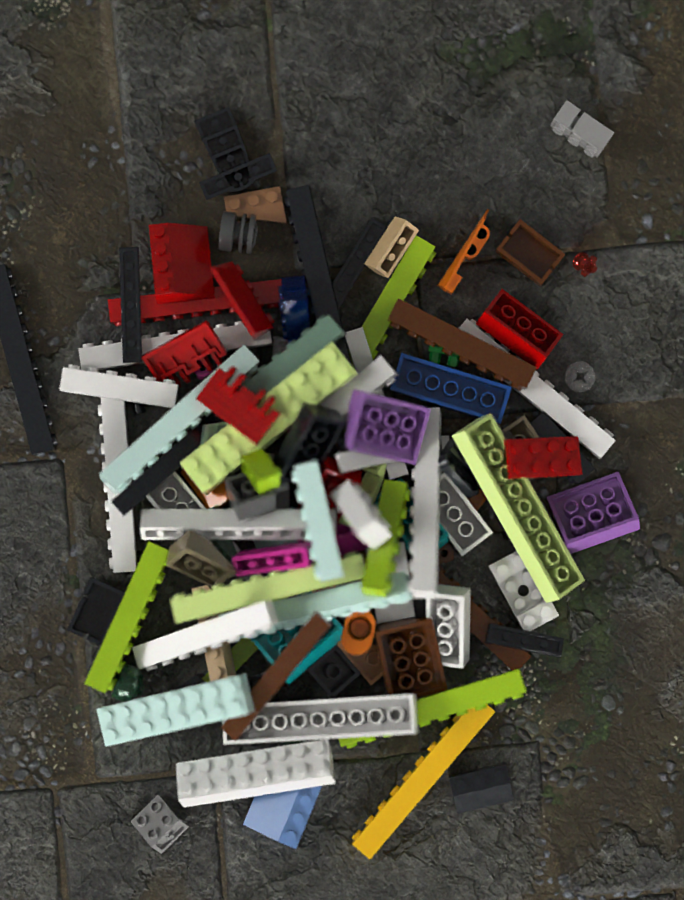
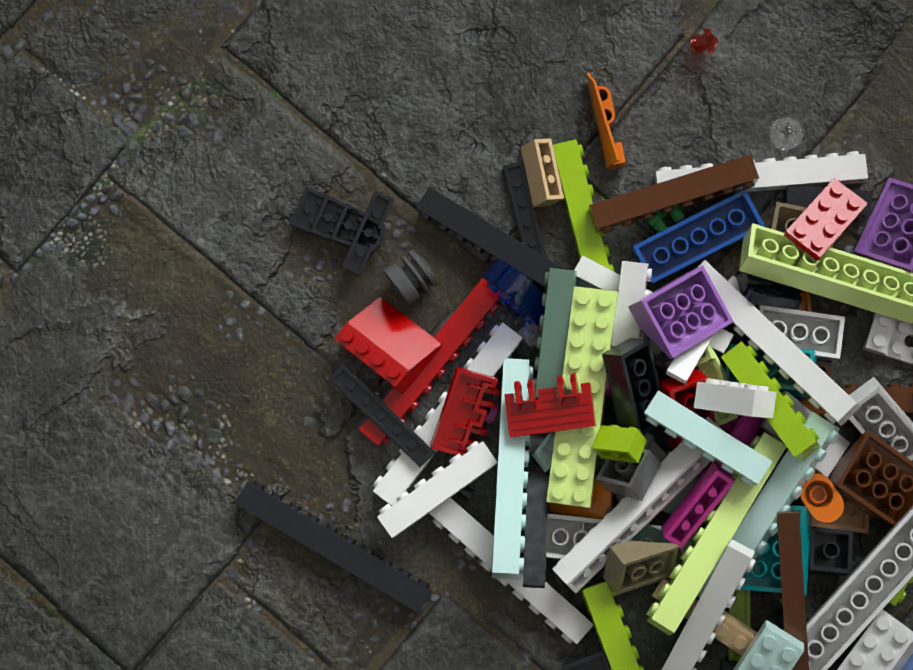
camera: 35 degrees left, 5 degrees down
(242, 299) = (467, 324): red slope -> none
(263, 203) = (407, 235): medium nougat wing -> none
(519, 329) = (705, 139): red brick -> none
(530, 252) = (654, 74): reddish brown piece -> none

